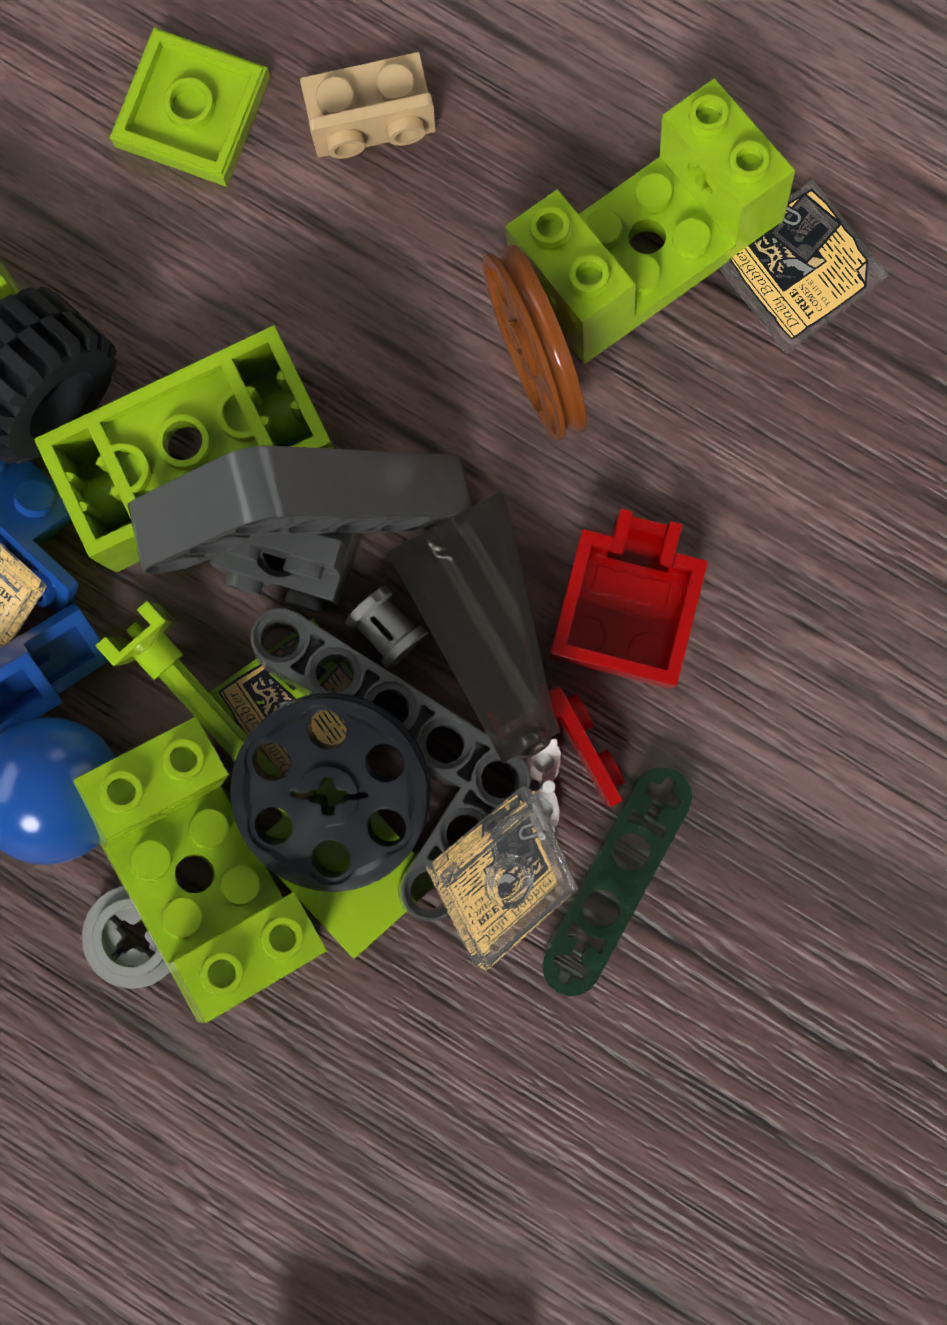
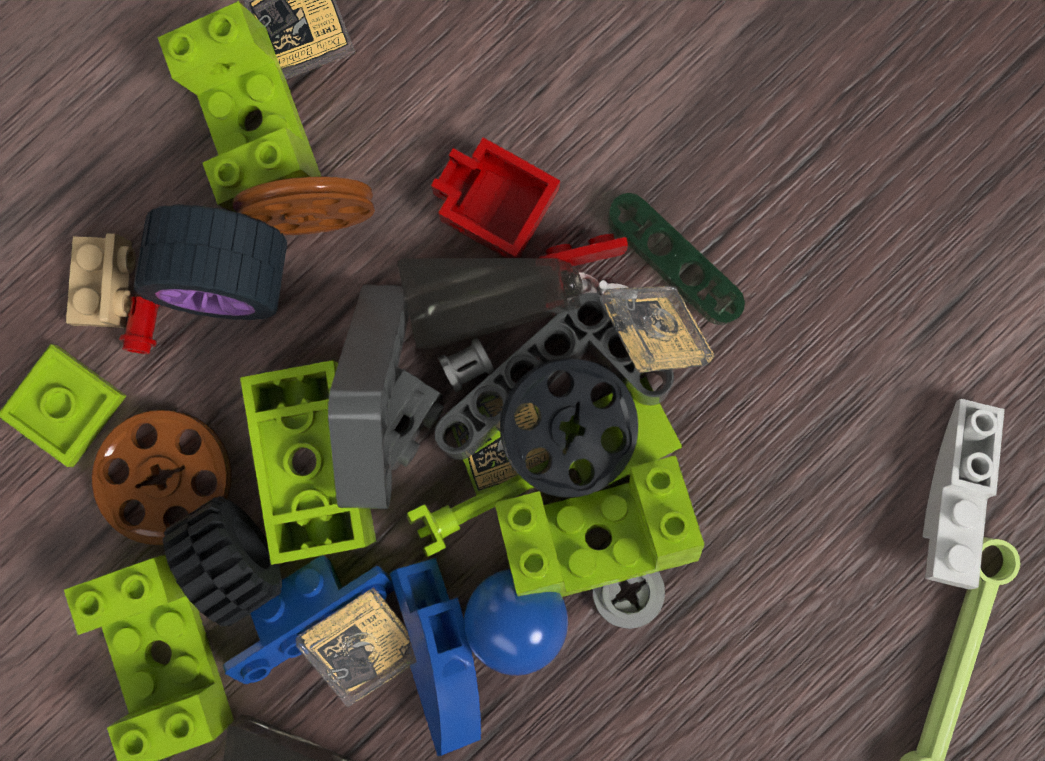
camera: 80 degrees left, 0 degrees up
(143, 241) = (144, 465): none -> dark orange wedge
(322, 176) = (140, 326): none -> red pin
(423, 241) = (210, 262): none -> black wheel

